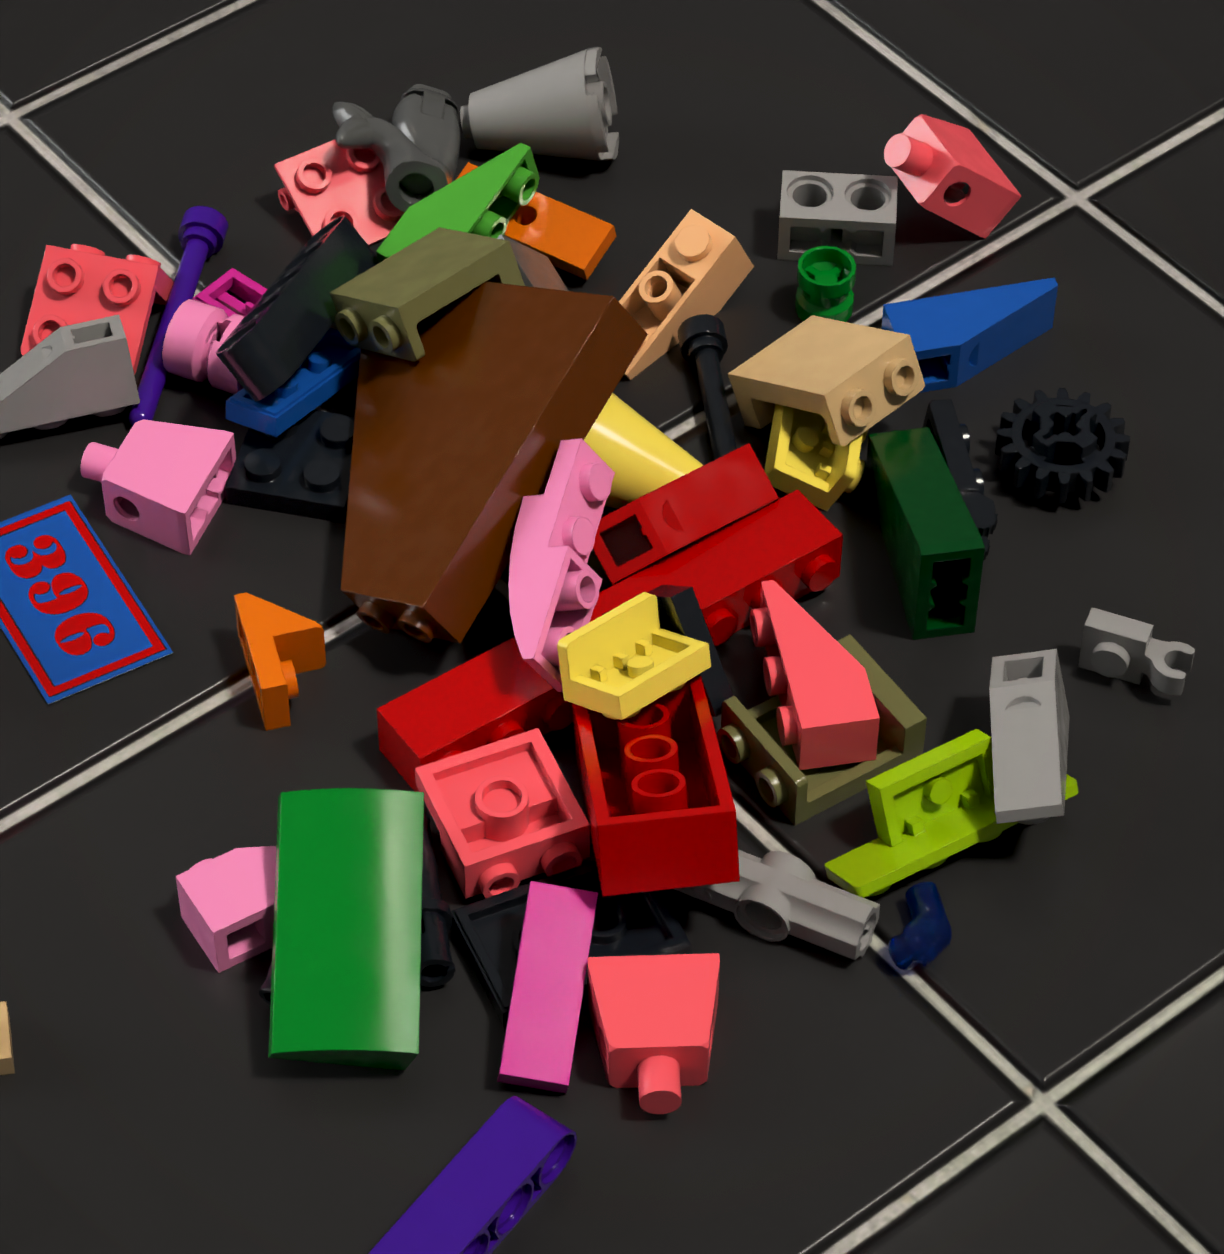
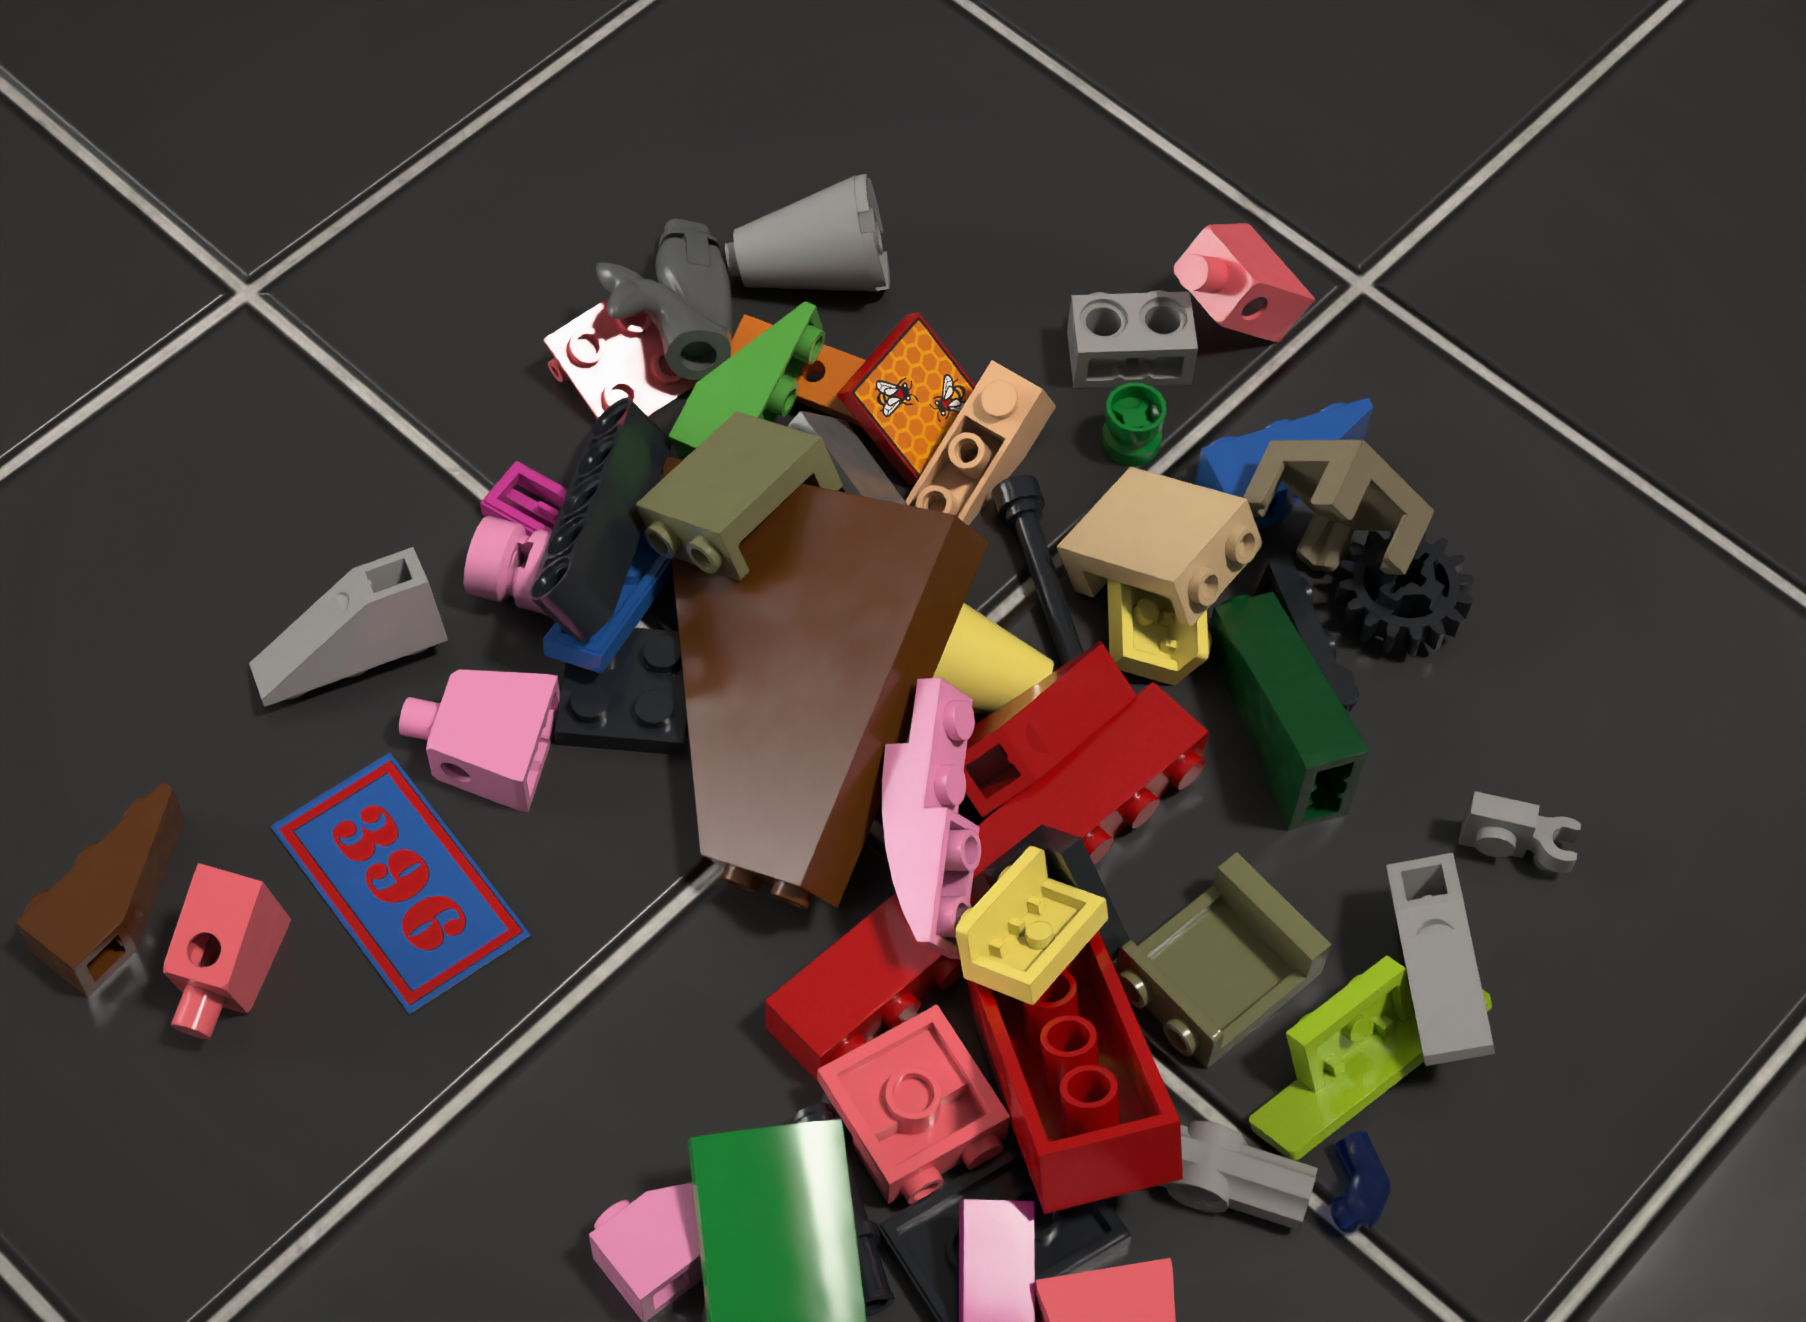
camera: 10 degrees left, 10 degrees up
(89, 286) = (374, 516): coral bracket -> none
(200, 236) = (477, 424): dark purple piece -> none
(276, 649) = (638, 927): orange slope -> none
(608, 234) = (908, 395): none -> tile
(821, 687) = (1218, 920): coral slope -> none
(1013, 344) = (1347, 492): none -> dark tan panel

